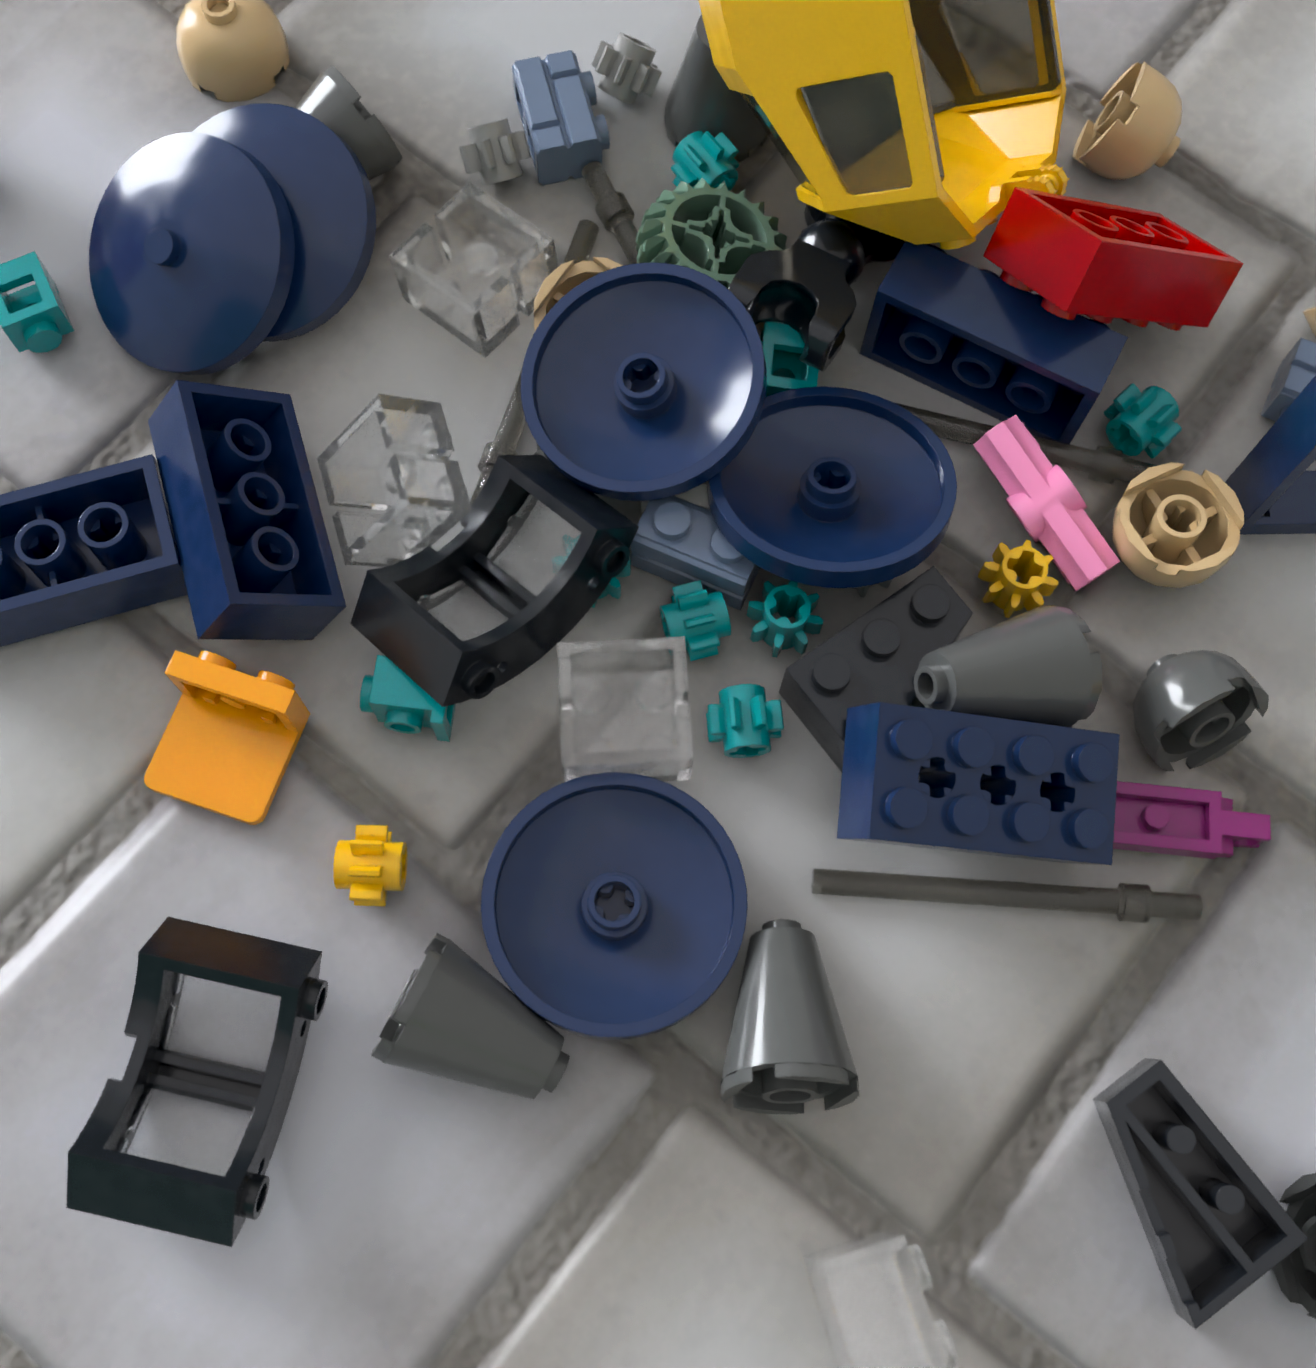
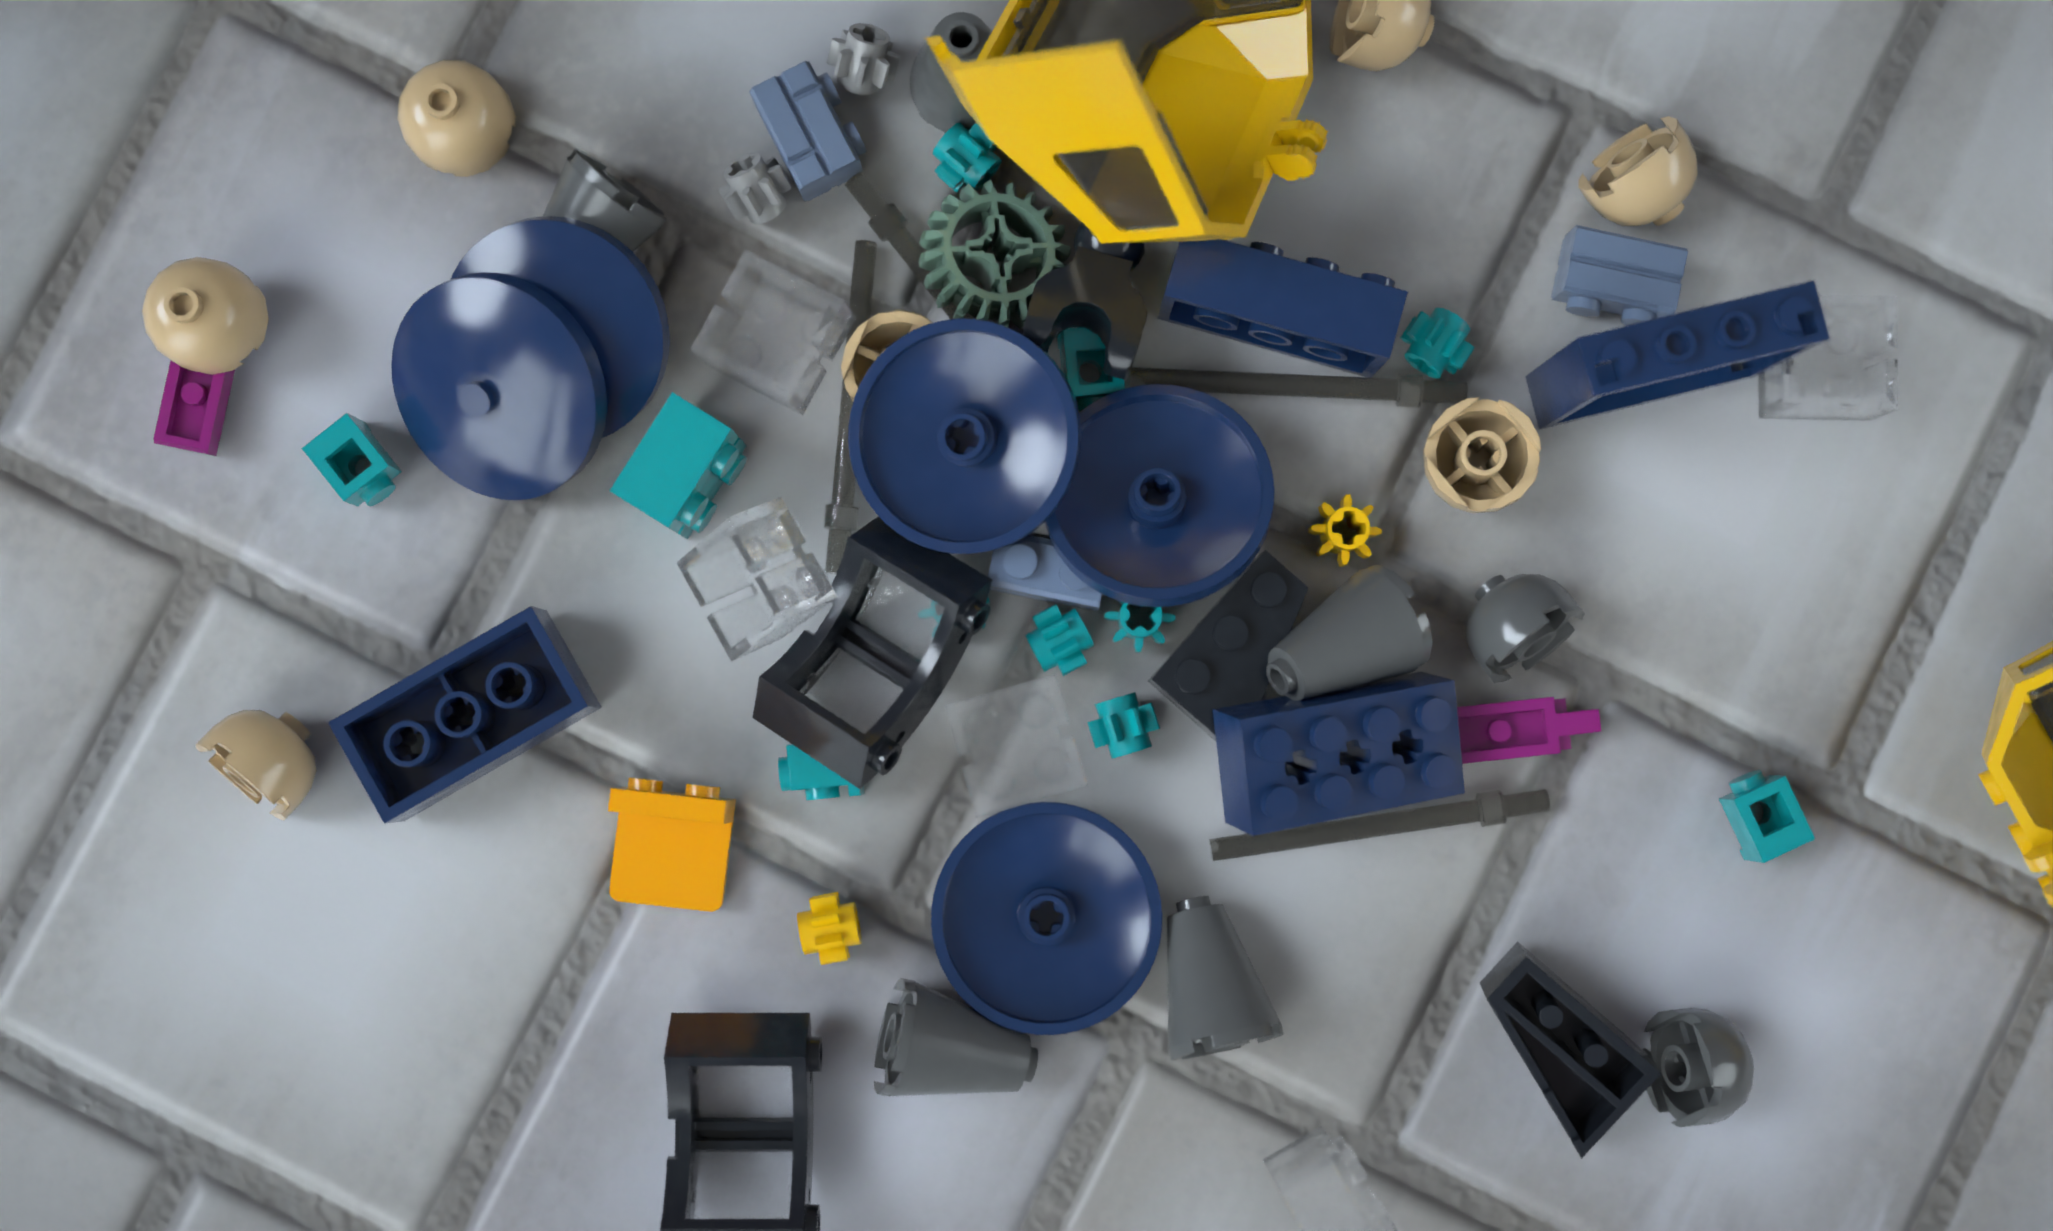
camera: 10 degrees left, 15 degrees up
(244, 513) = (629, 637): dark blue brick -> none
(345, 358) = (681, 467): none -> teal piece
(1046, 503) = (1359, 451): bright pink piece -> none
(1109, 261) = (1381, 207): red brick -> none

